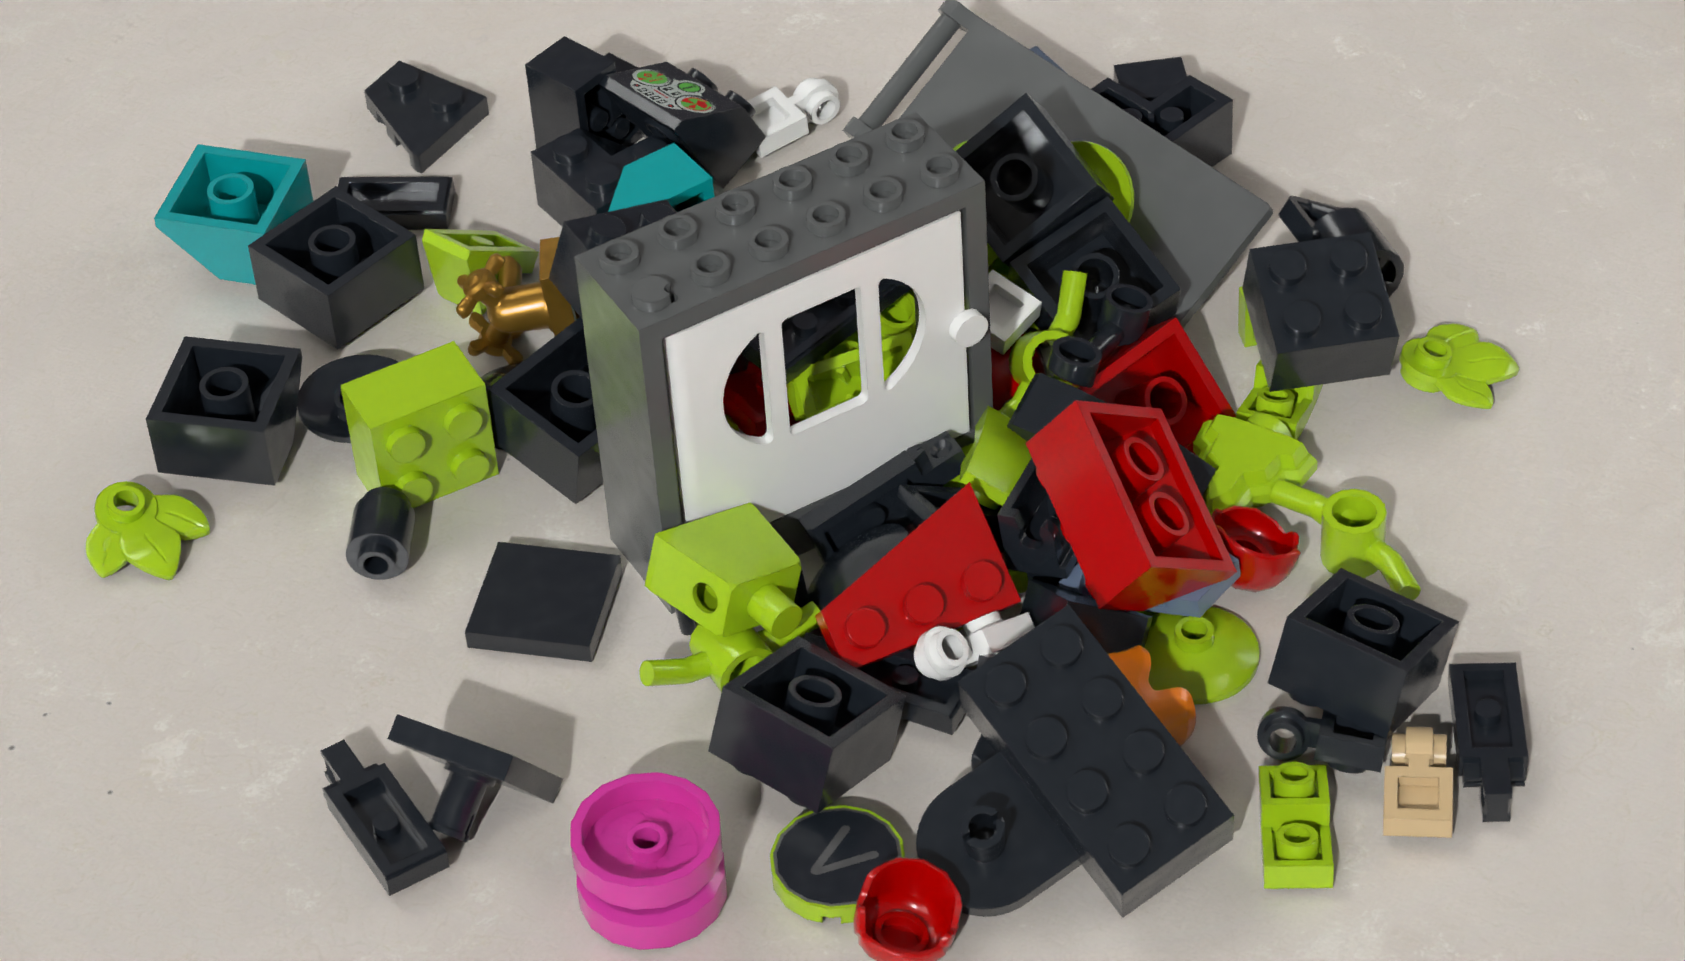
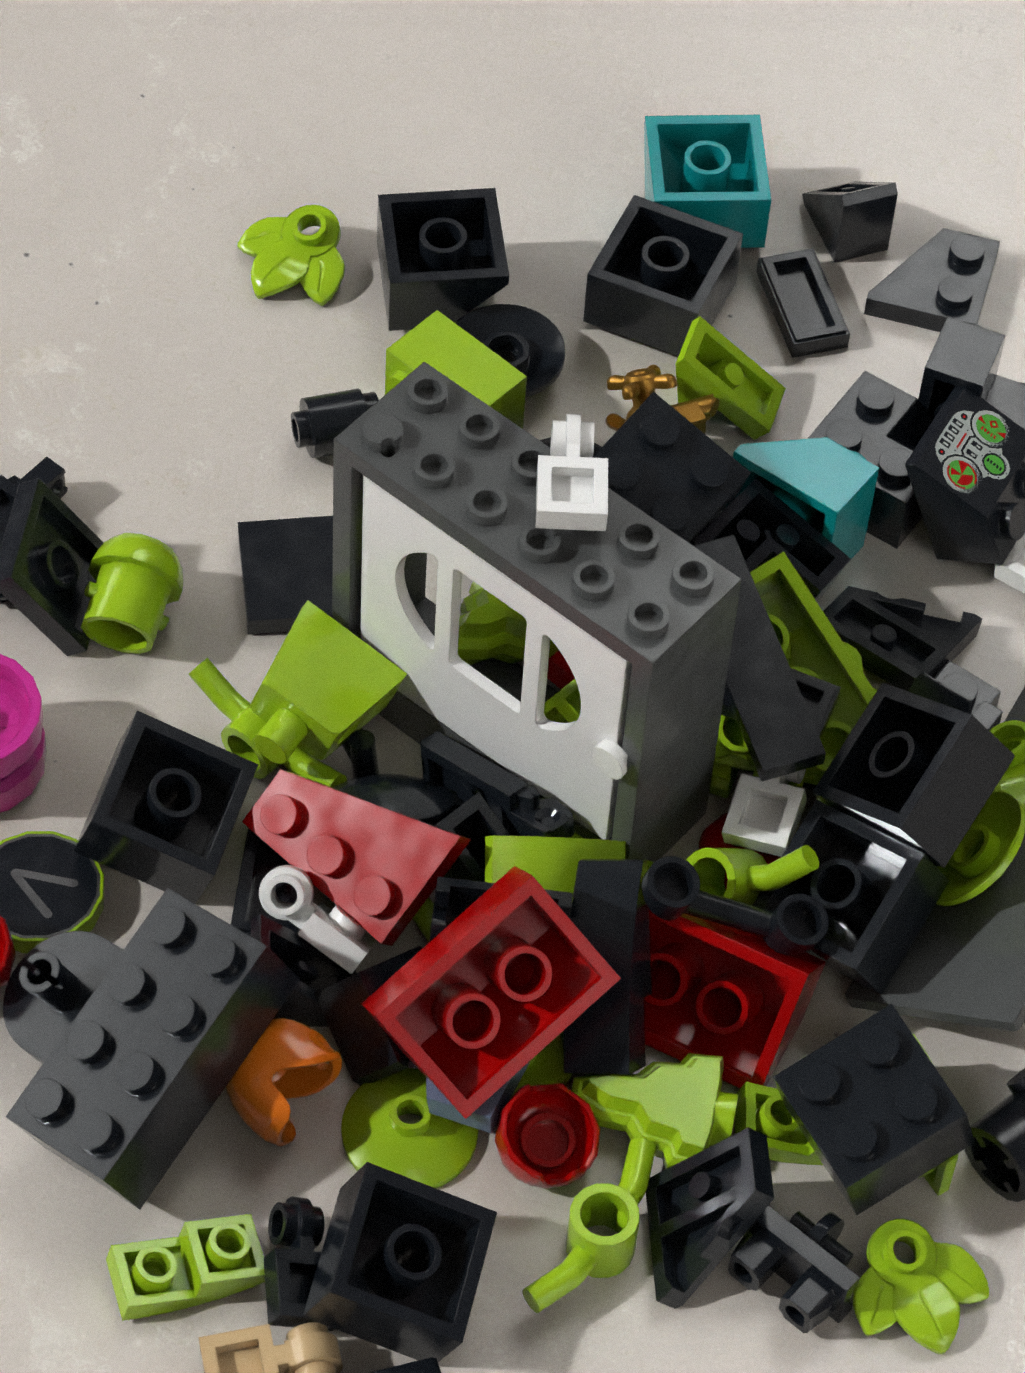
camera: 65 degrees right, 10 degrees up
(320, 133) = (853, 217): none -> black slope
(526, 713) = (131, 591): none -> lime piece
(791, 169) = (570, 481): none -> white plate
(1363, 449) = (703, 1211): none -> black wing
(1419, 417) = (805, 1258): none -> black hips

